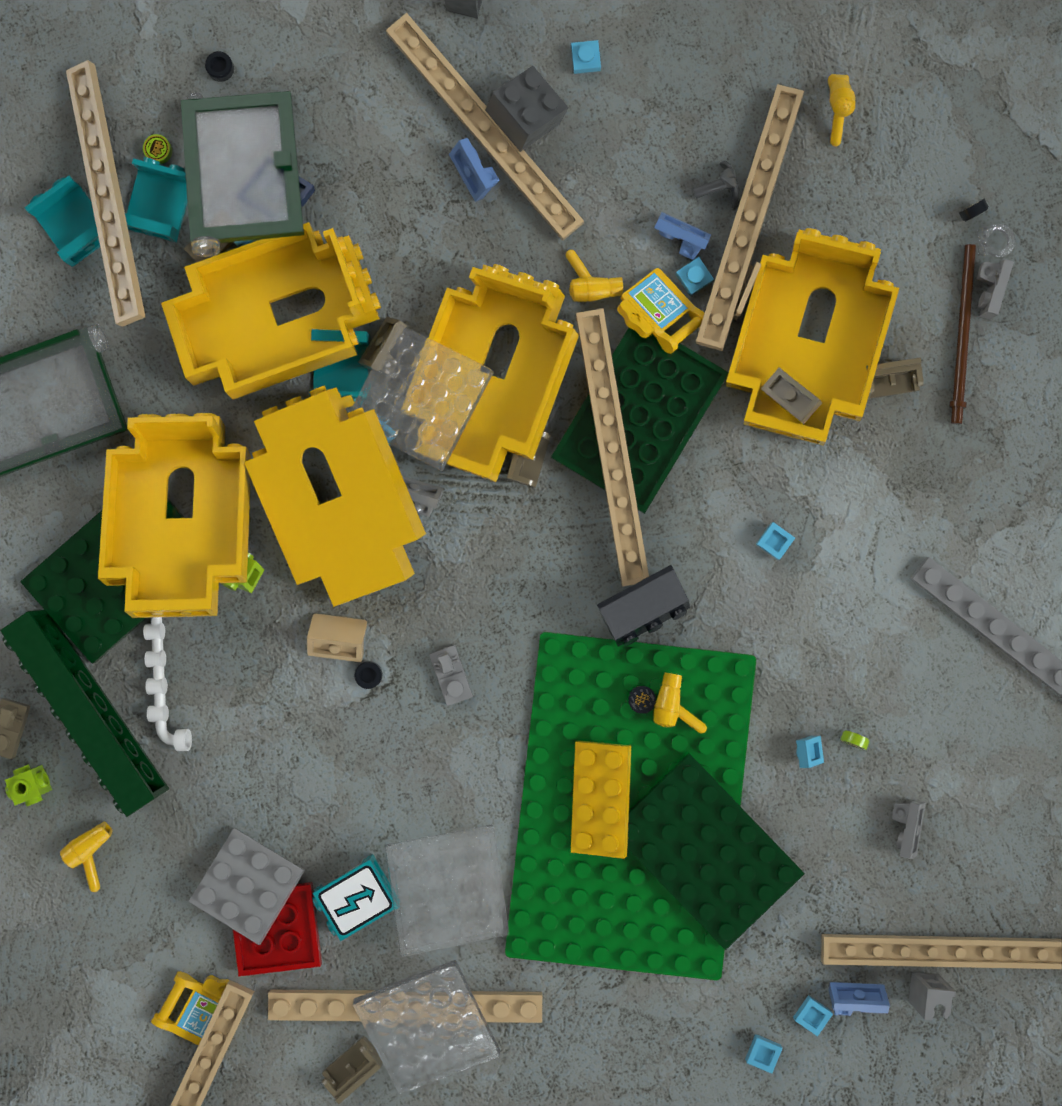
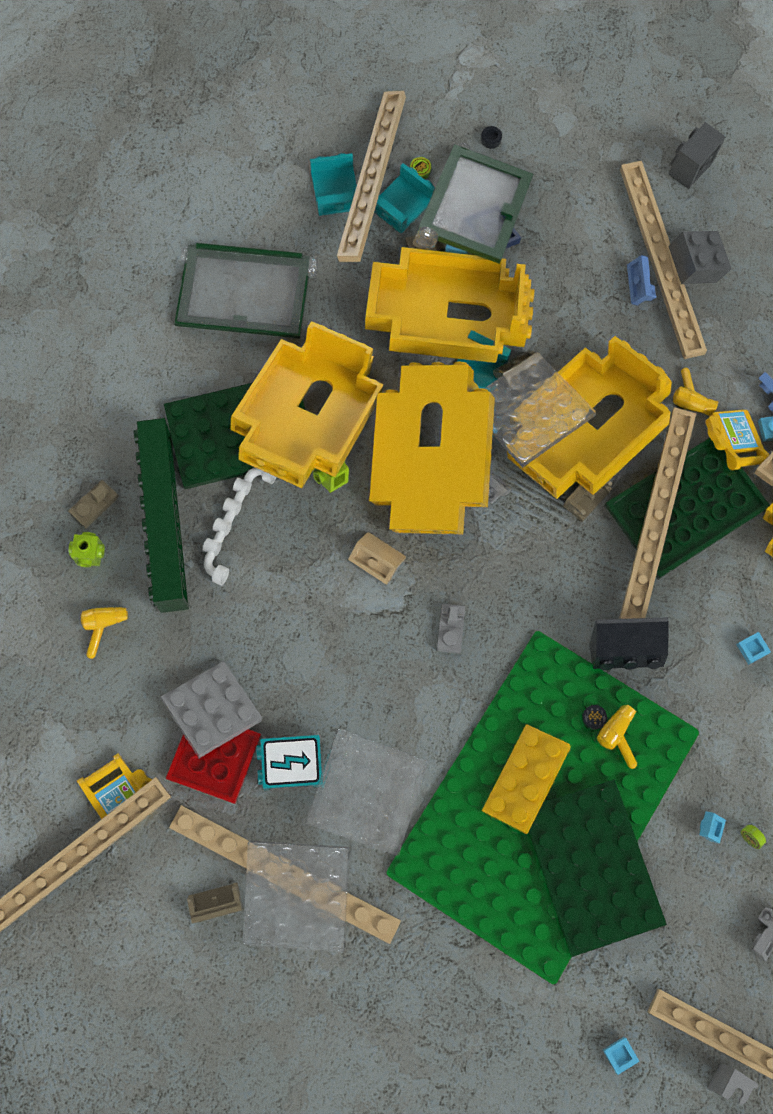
camera: 25 degrees right, 15 degrees down
(368, 675) = (387, 597): black tile -> none
(585, 57) = (756, 246): medium azure plate -> none
(763, 1053) = (564, 1068): medium azure plate -> none
(858, 997) = (657, 1054): medium blue hinge -> none

